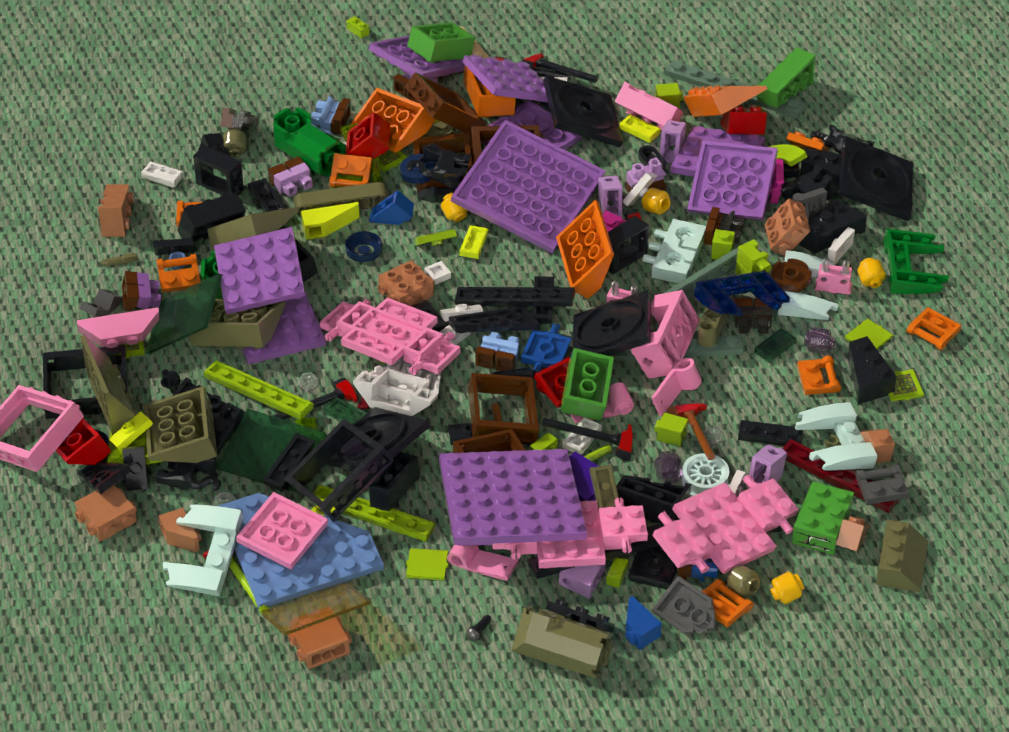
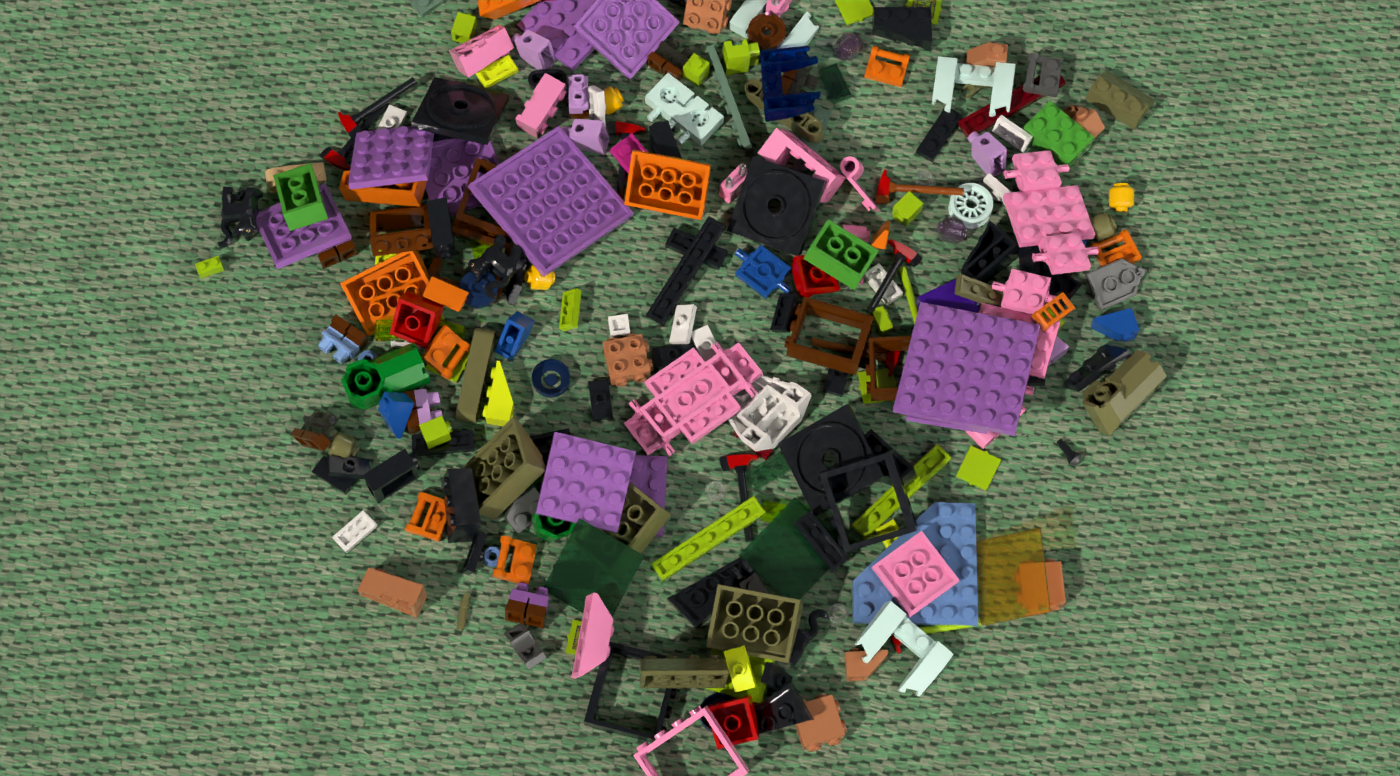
camera: 70 degrees left, 25 degrees up
(170, 380) = (662, 613): black plate -> none
(271, 184) = (436, 431): none -> lime brick
(276, 152) = (395, 411): none -> blue slope
(359, 284) = (600, 400): none -> black plate
(398, 146) = (445, 294): none -> orange slope
(404, 26) = (241, 209): none -> black animal
(450, 109) = (441, 228): none -> black window
(474, 242) = (590, 278): neon yellow plate -> none
(495, 320) = (713, 294): black wing -> none
(497, 352) = (751, 314): hips -> none
(601, 531) = (1039, 319): none -> orange slope
(617, 155) = (541, 106): none -> bright pink wedge
(628, 412) = (880, 238): none -> orange slope
(803, 483) = (1012, 133): none -> white plate

